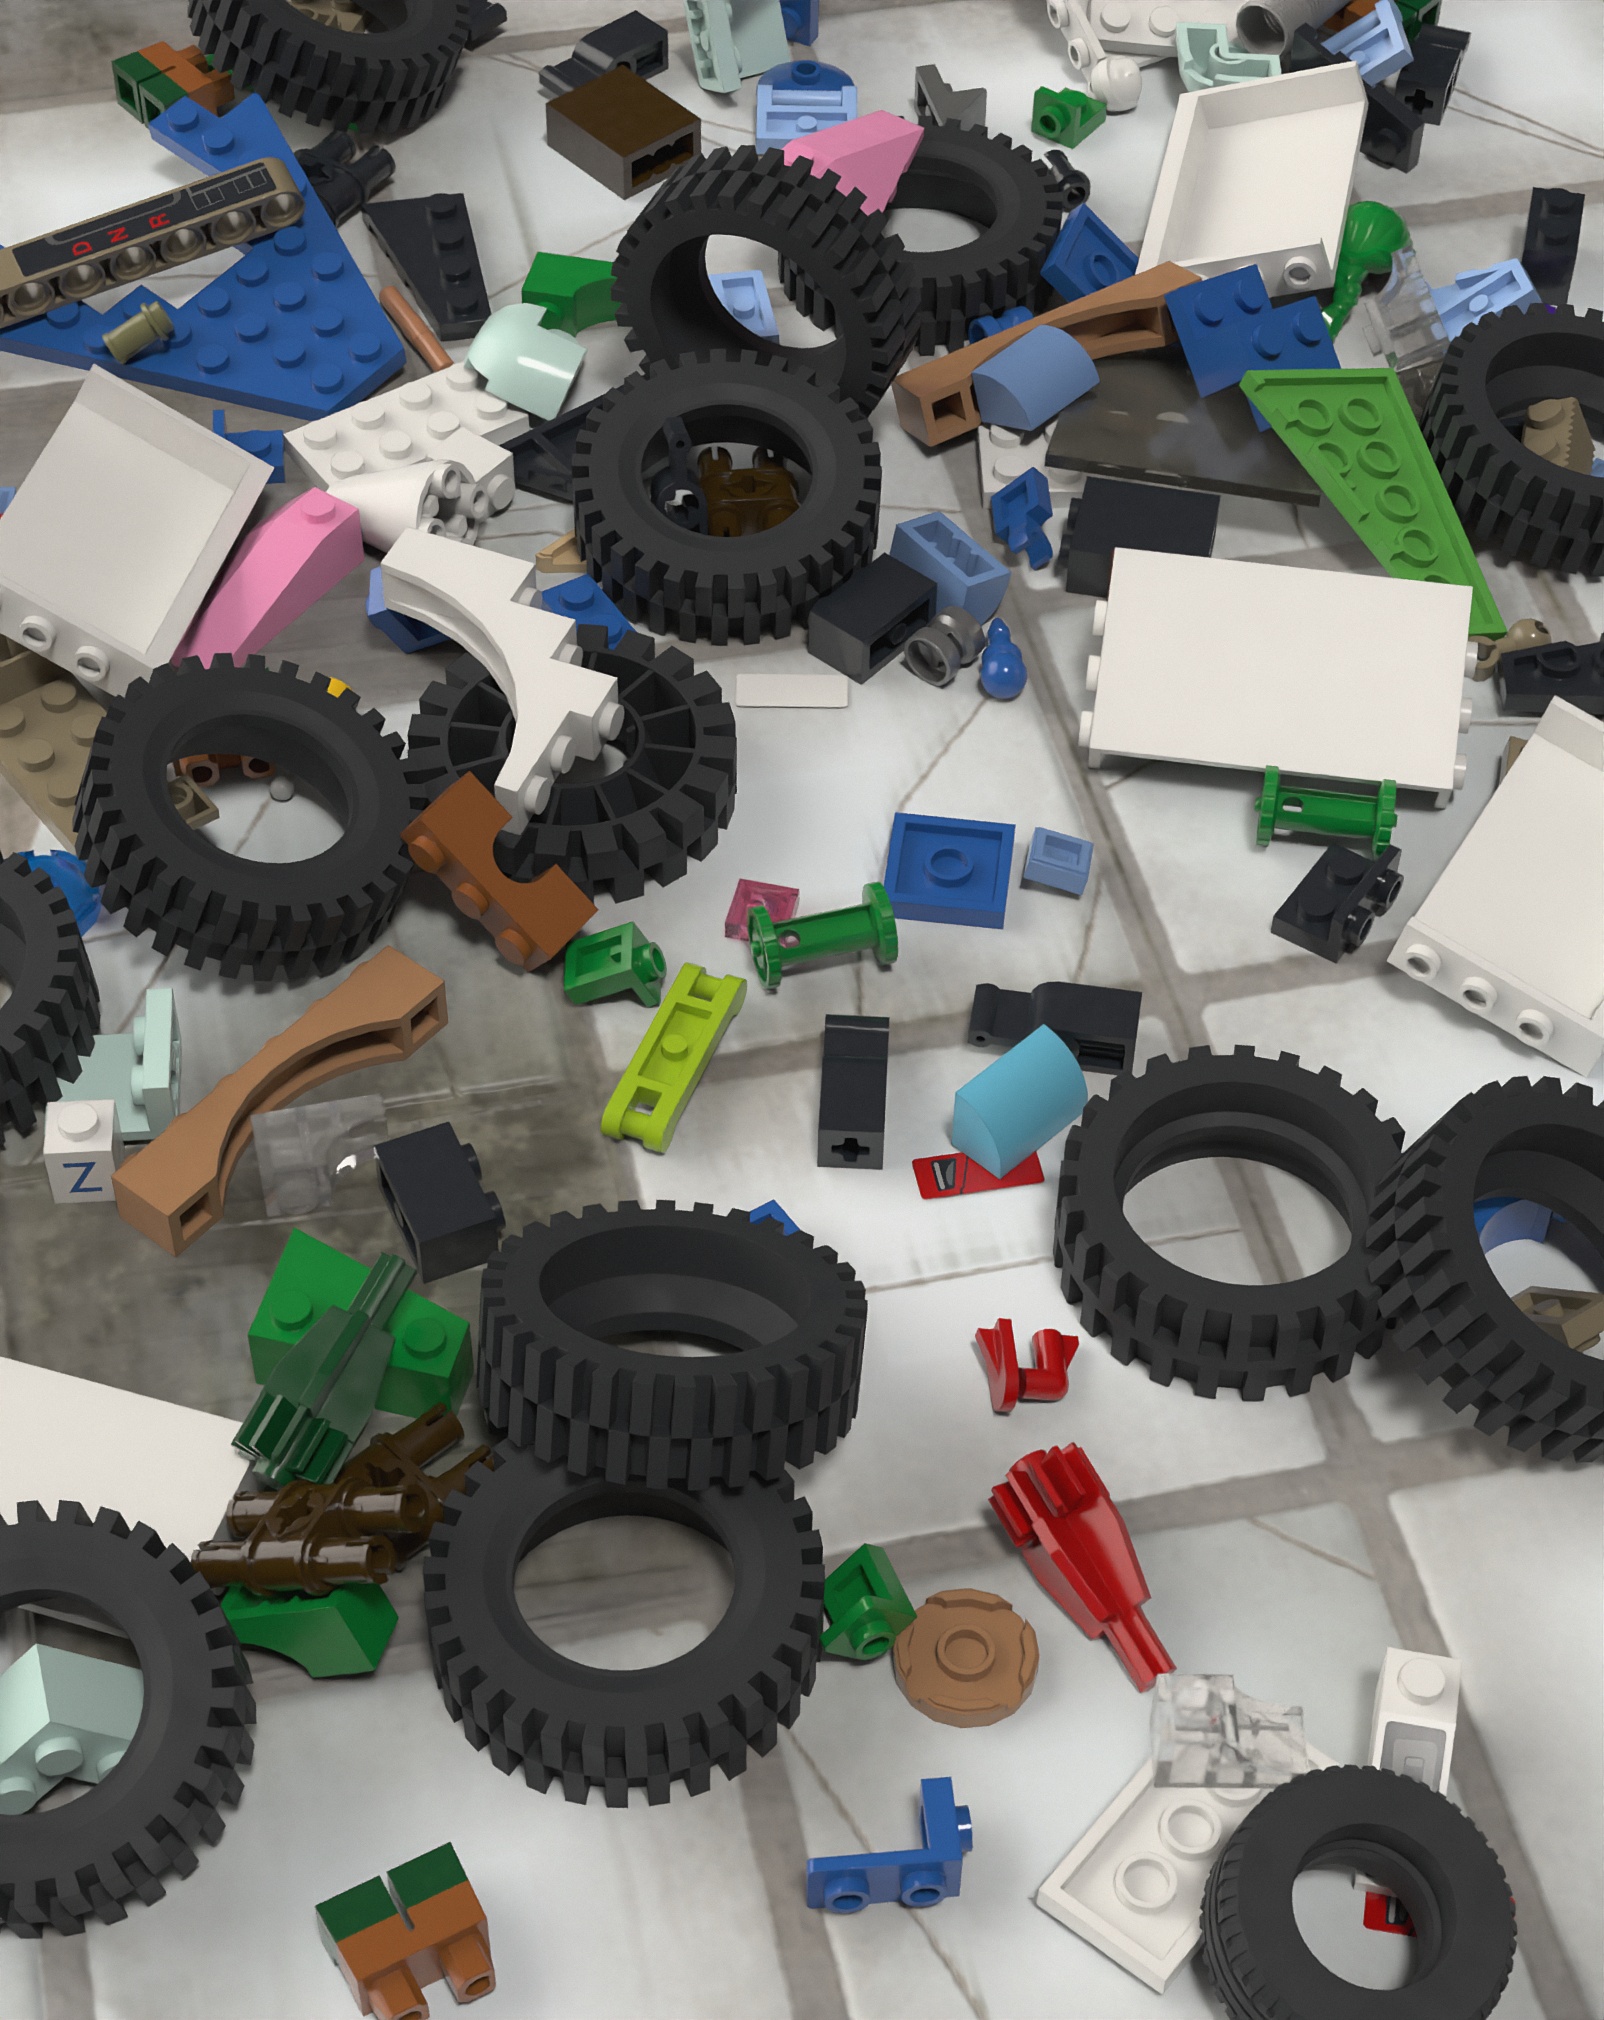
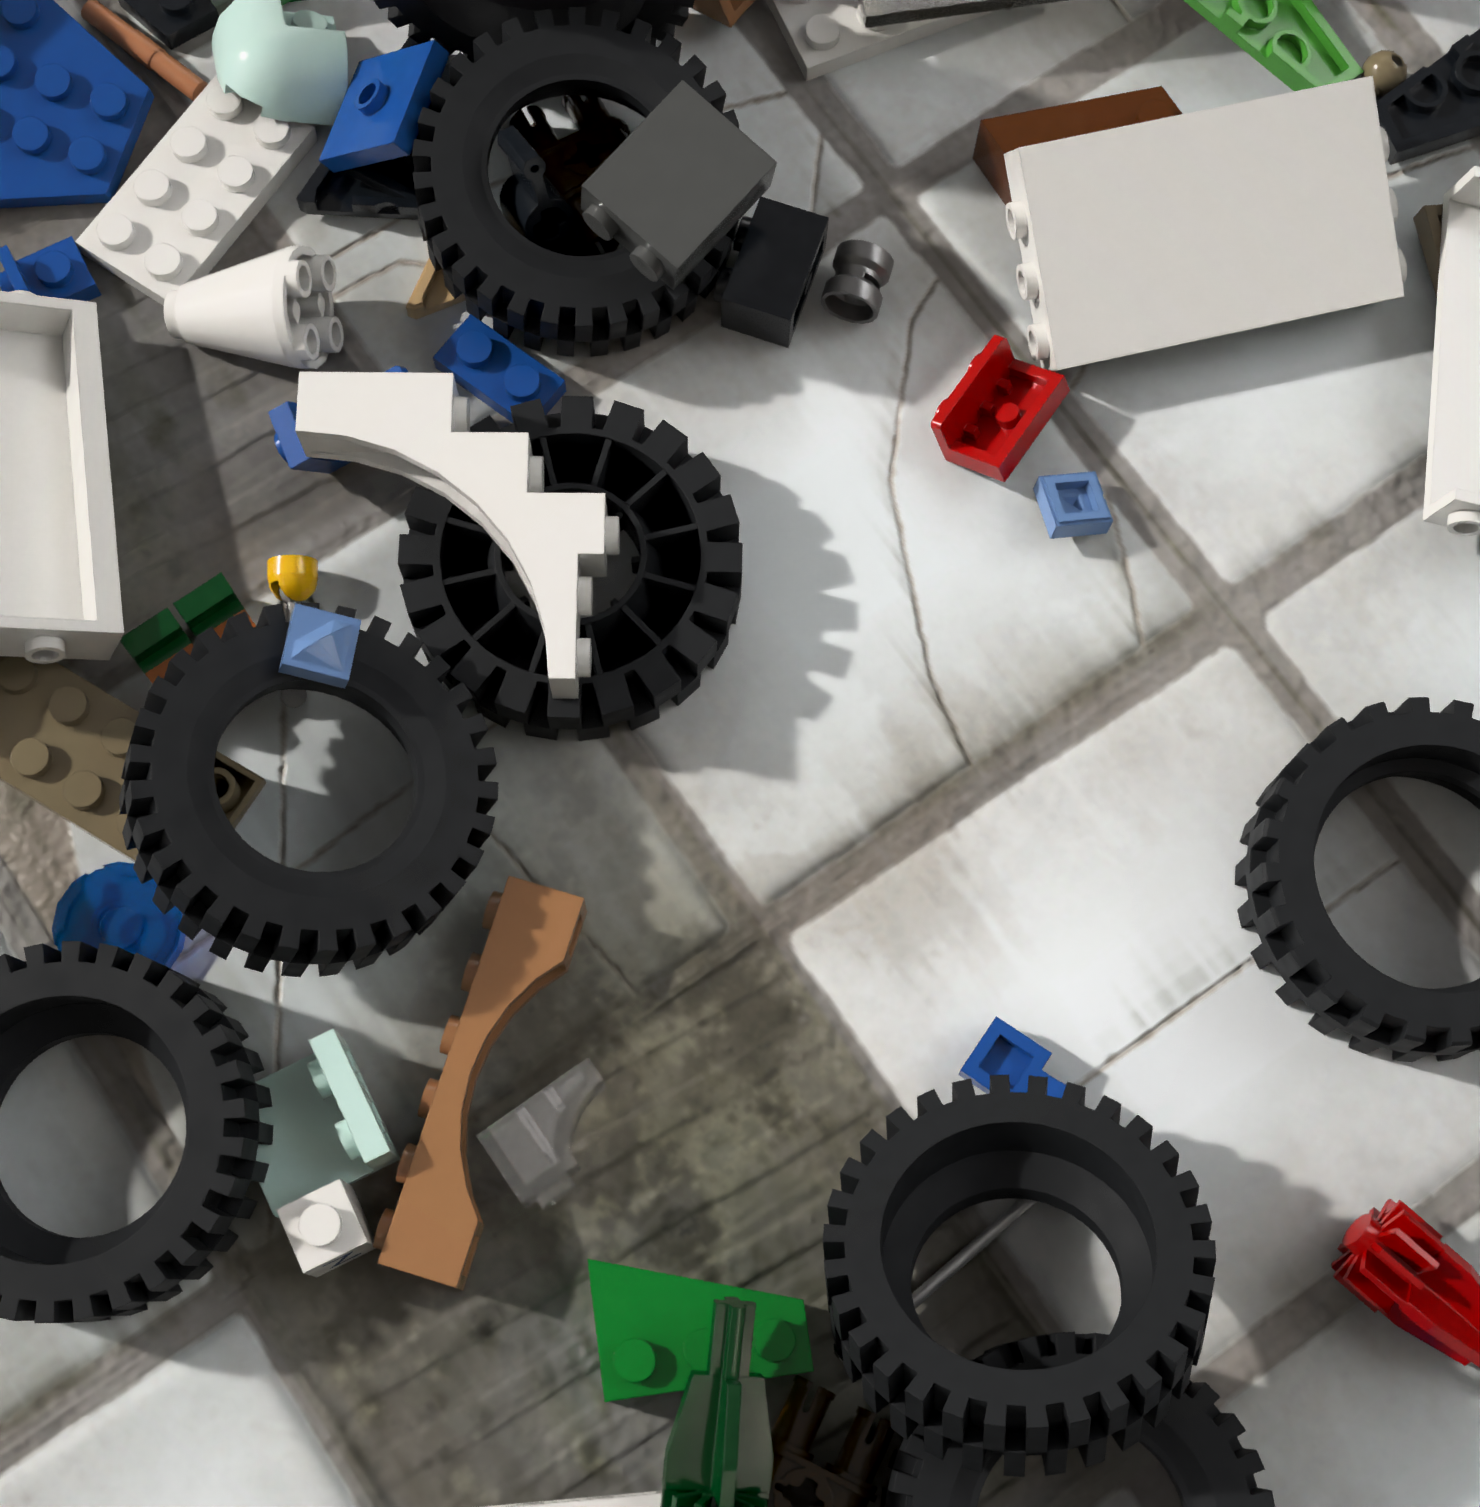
camera: 25 degrees left, 25 degrees up
(275, 577) = (159, 414): bright pink wedge -> none
(313, 699) = (320, 646): none -> medium blue tile
(439, 1201) = (690, 1142): black brick -> none
(457, 845) = (533, 742): dark orange arch -> none
(485, 461) = (294, 218): white brick -> none
(578, 399) = (383, 107): none -> blue plate
(614, 962) = (721, 797): green bracket -> none
(673, 1056) = (824, 877): lime plate -> none
(778, 900) = (825, 670): clear pink tile -> none
(791, 690) = (726, 380): white sticker -> none
(798, 495) = (676, 186): none -> dark grey brick
(823, 934) = (905, 687): green hose -> none
(853, 1092) = (1007, 852): black piece -> none
(865, 1605) = (1280, 1432): green bracket -> none
(949, 870) = (973, 551): blue tile -> none
(951, 558) = (828, 183): medium blue brick -> none
(961, 1175) = (1146, 889): red sticker -> none
(966, 1659) = (1369, 1433): medium nougat tile -> none
(1002, 664) = (924, 291): blue bar -> none
(1007, 1381) = (1284, 1124): red piece -> none
(1019, 767) = (996, 411): none -> red bracket
(1019, 1102) = (1165, 814): medium azure brick -> none
(1021, 512) = (854, 84): blue plate -> none
(1091, 1021) = (1159, 703): black piece -> none
(1132, 518) = (980, 72): black brick -> none
(1326, 812) = (1342, 351): green hose -> none
(1338, 901) = (1341, 453): black bracket -> none

